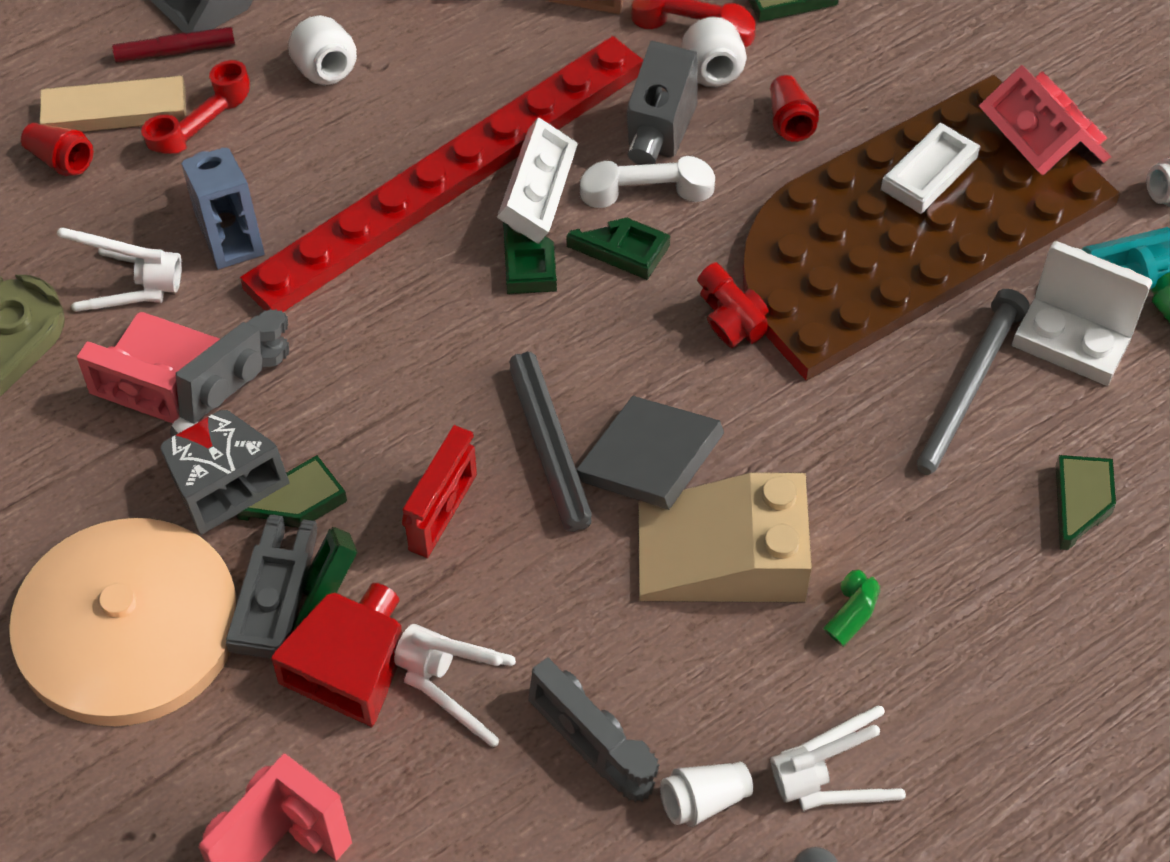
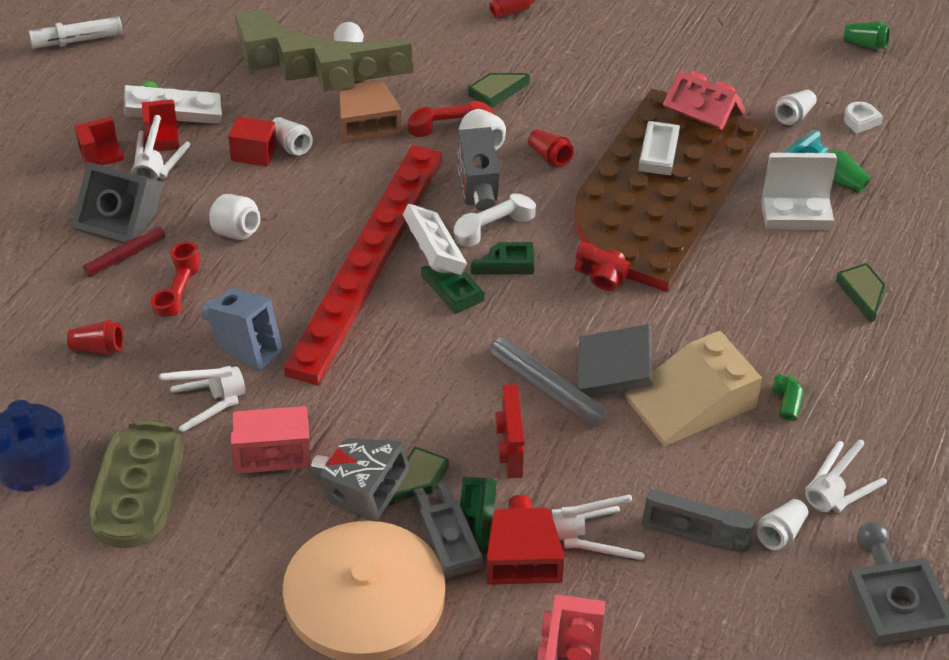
camera: 30 degrees left, 10 degrees down
(113, 103) = (112, 299): tan tile -> none
(231, 364) = (325, 413): dark grey hinge -> none
(1008, 308) = (753, 207): dark grey bar -> none

